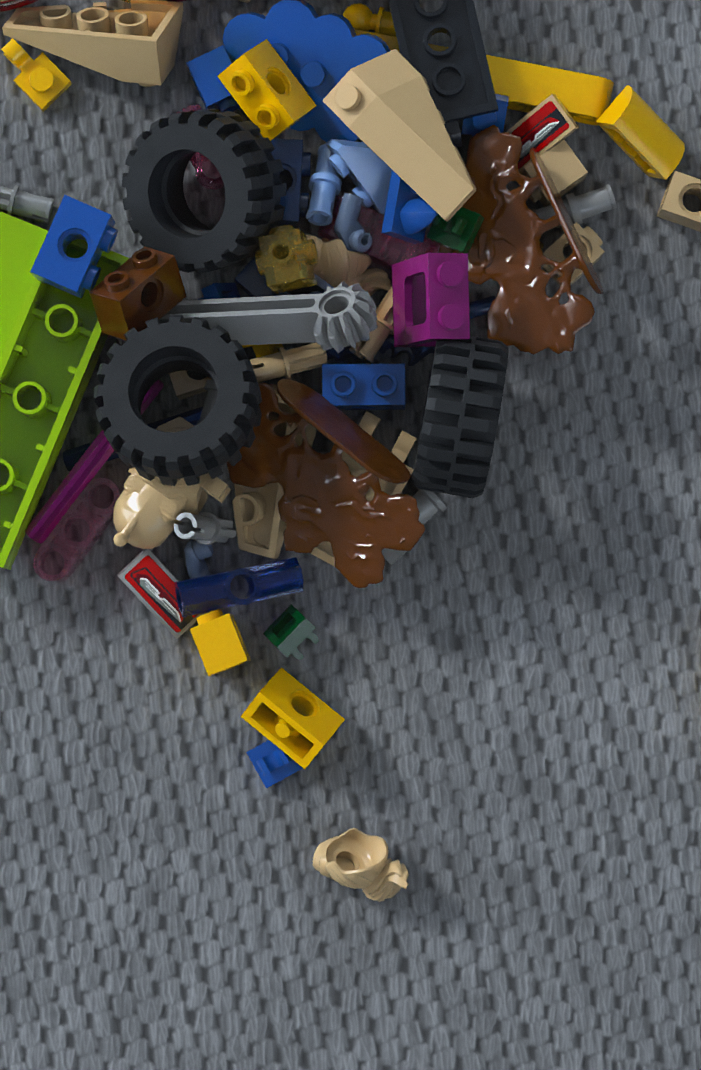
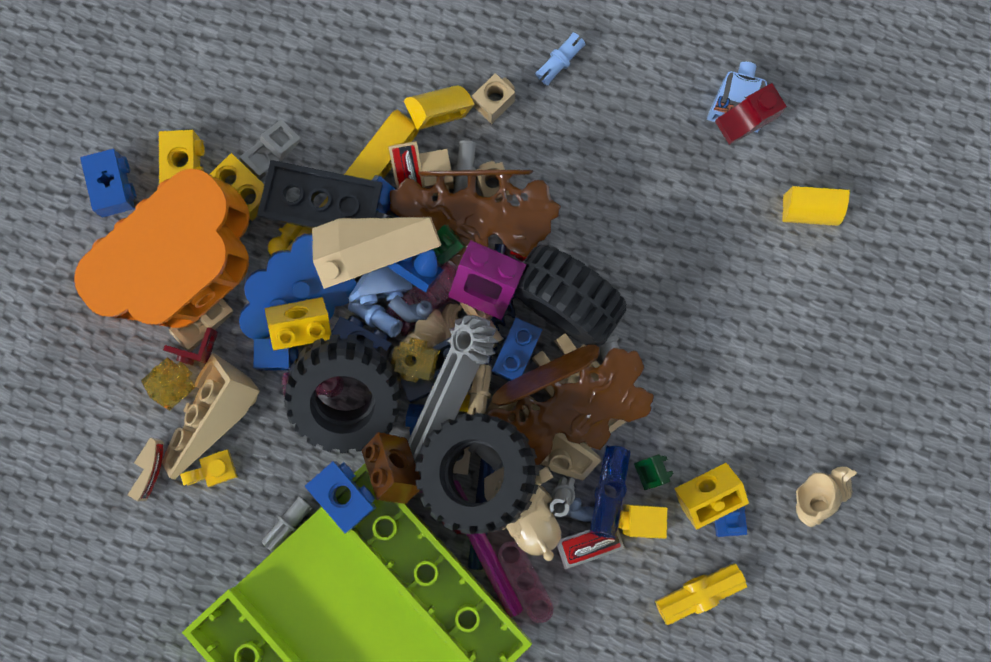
camera: 70 degrees left, 5 degrees down
(163, 760) = (701, 594): none -> yellow piece

